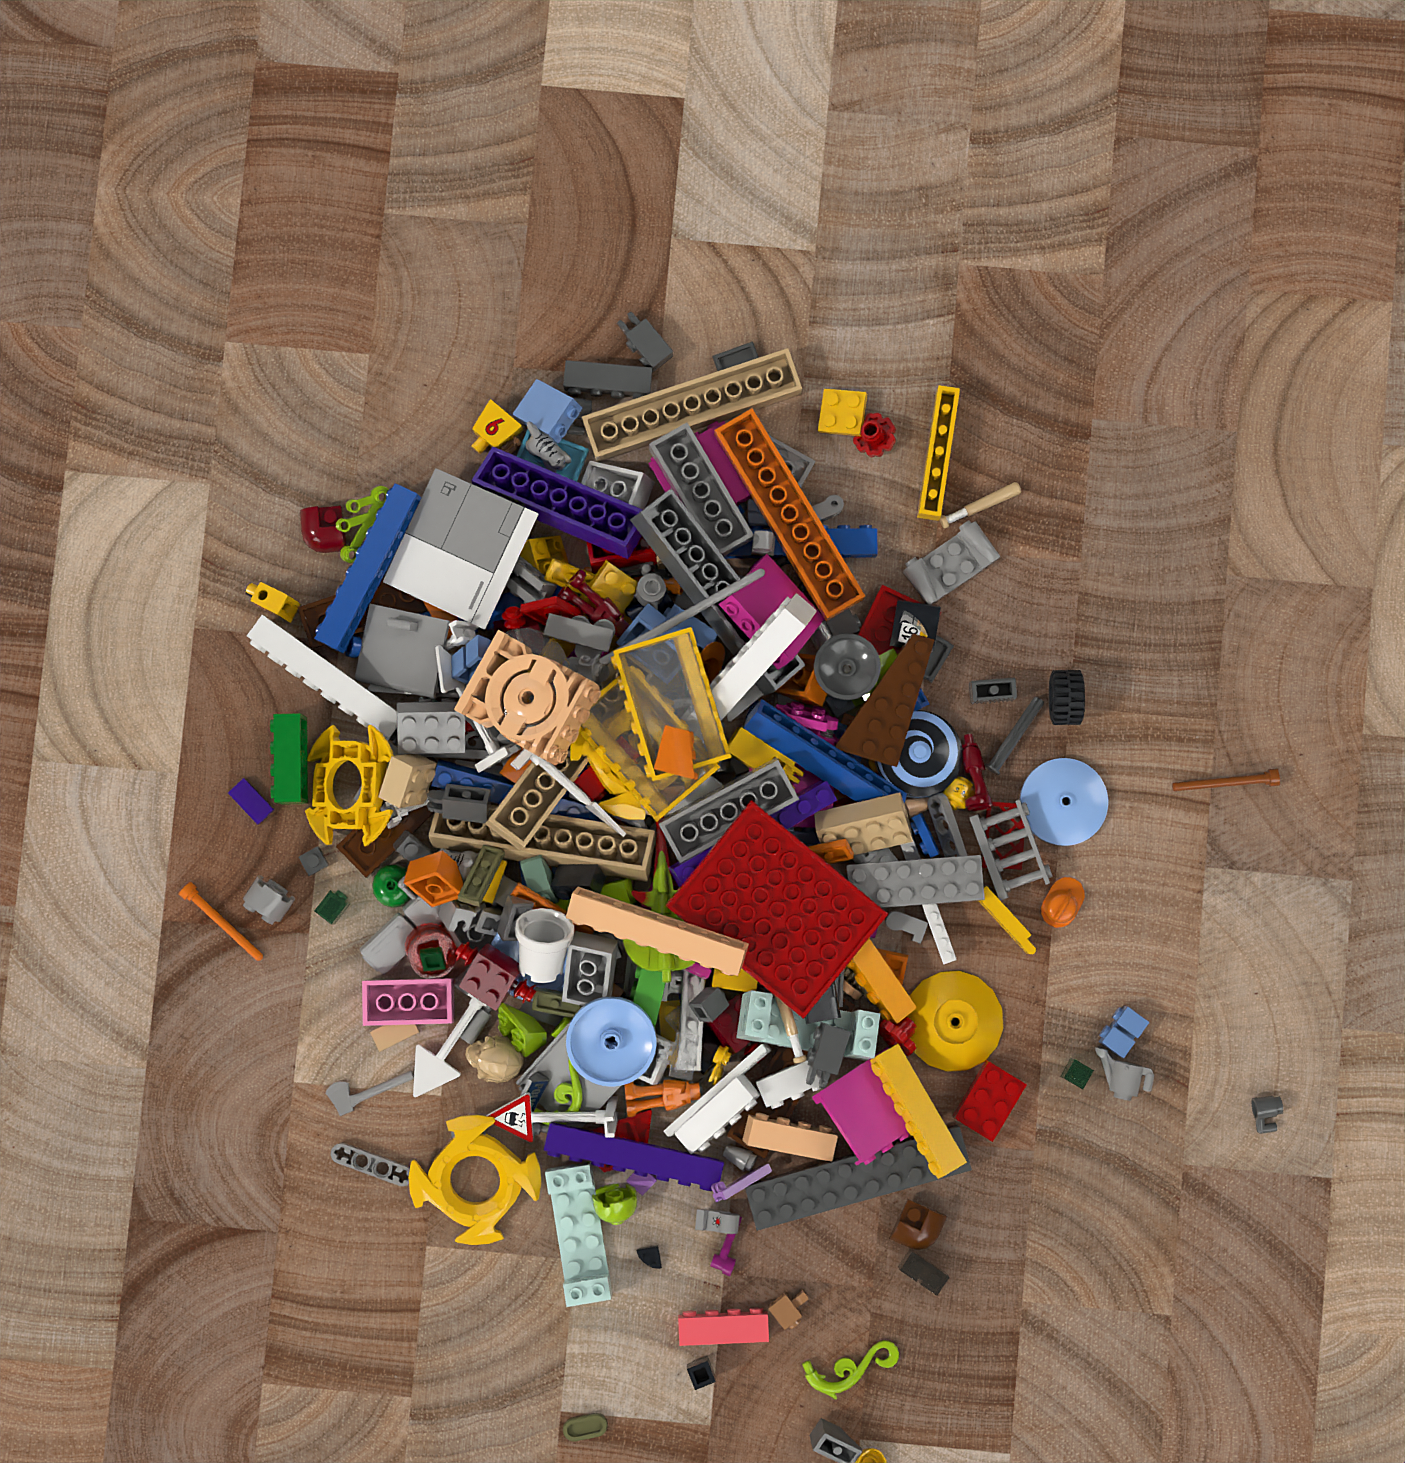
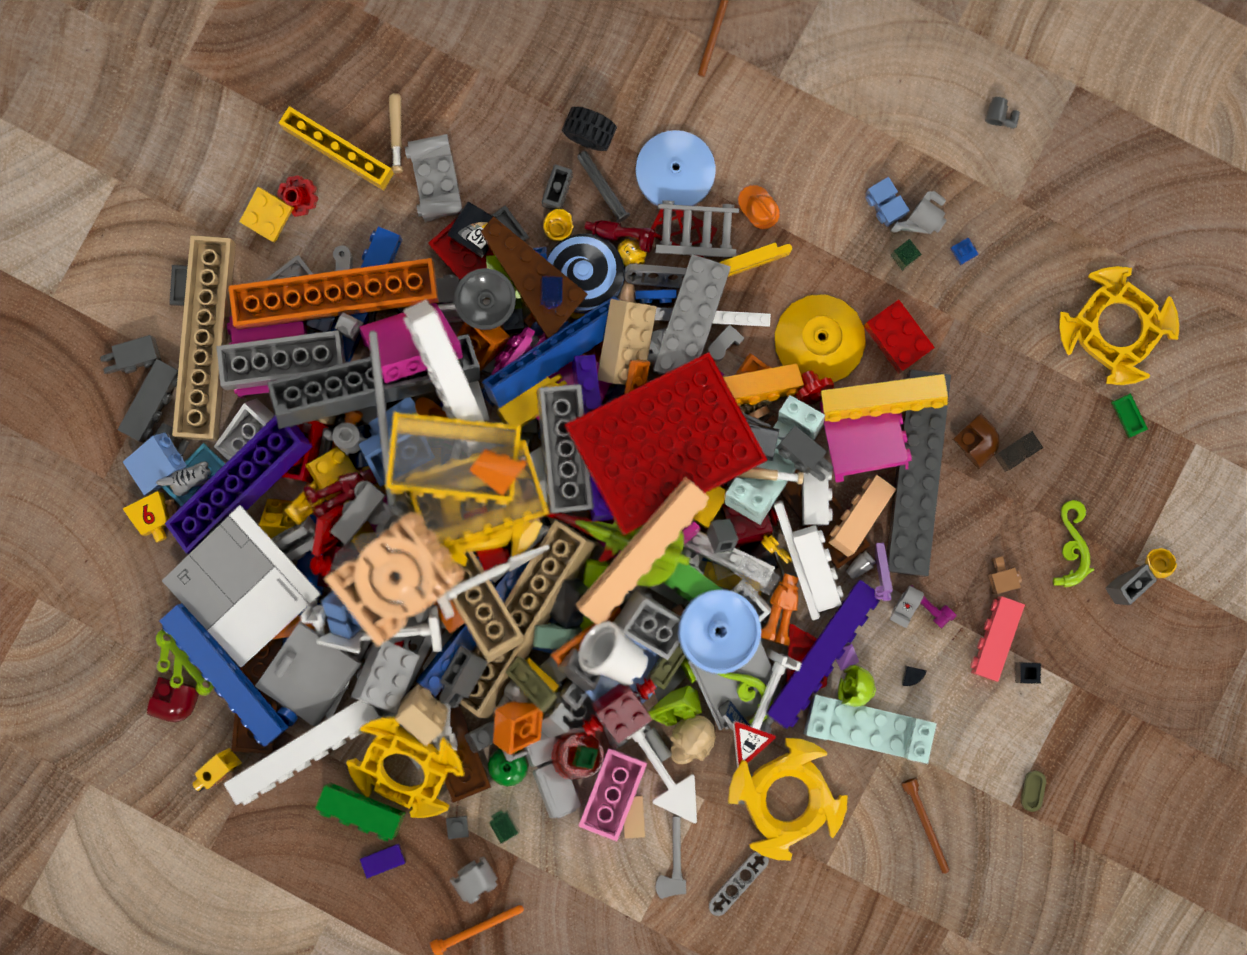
camera: 70 degrees left, 0 degrees up
(537, 1300) = (911, 787): none -> dark orange piece
(882, 729) = (551, 291): none -> clear blue brick
(956, 707) = (558, 224): none -> yellow hair
(1009, 1372) = (1129, 415): none -> green tile
(1084, 1288) = (1119, 359): none -> yellow piece
(1107, 1132) = (964, 251): none -> blue tile

